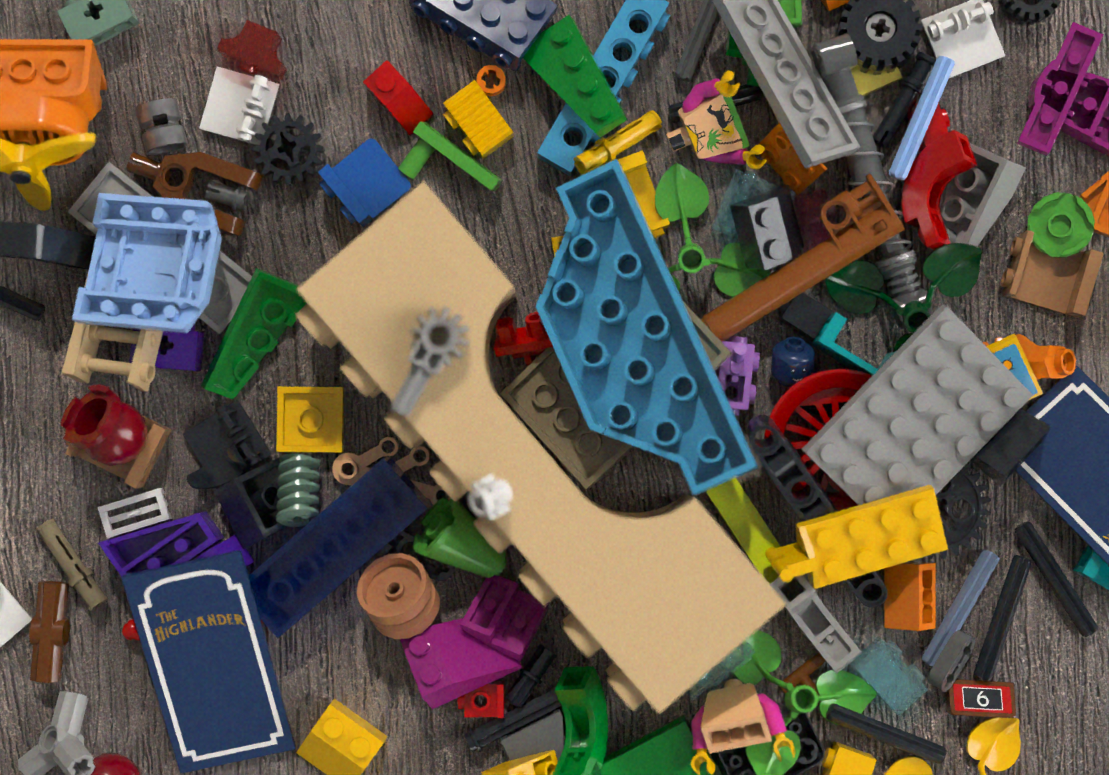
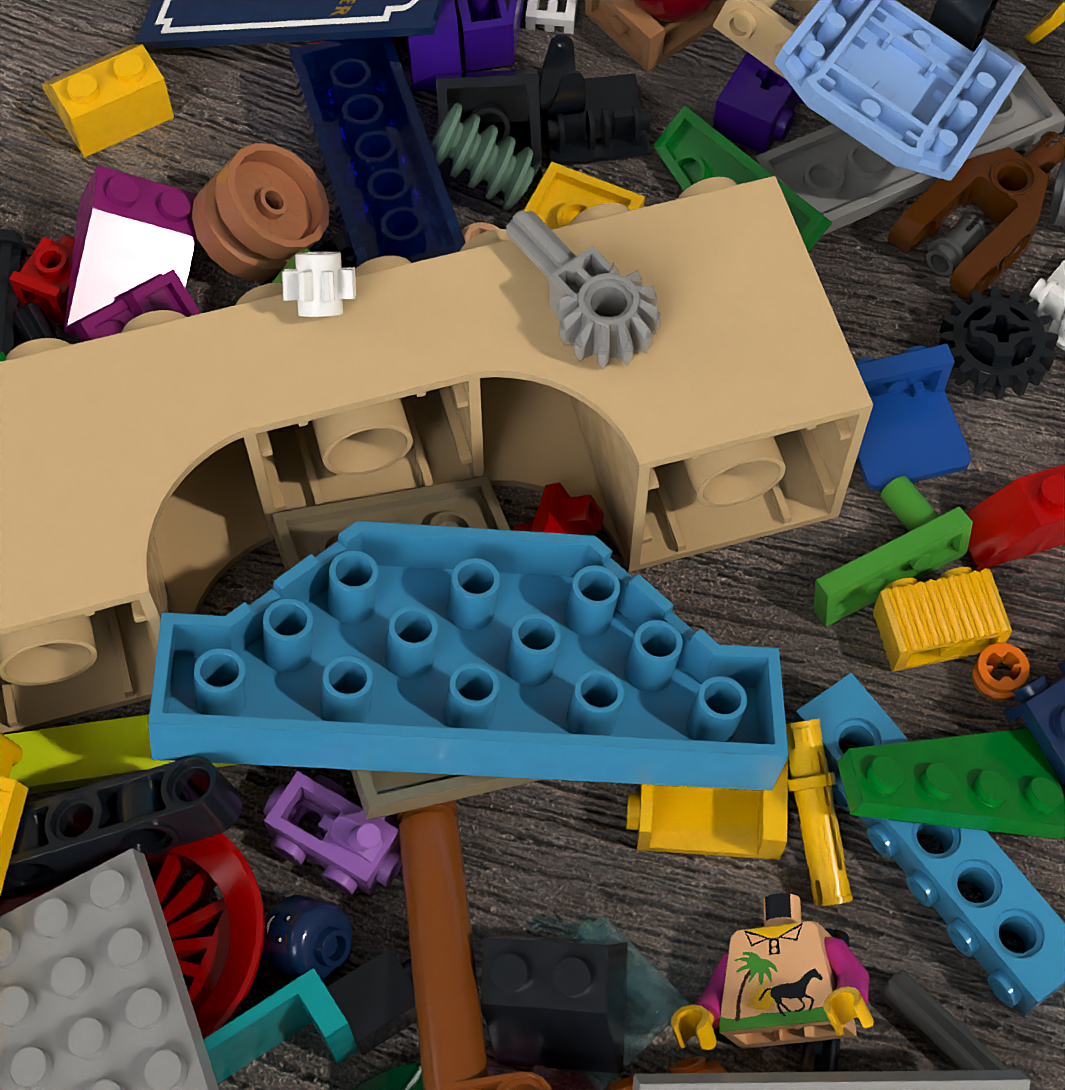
camera: 115 degrees right, 25 degrees down
(686, 195) = (676, 892): bright green plant -> none

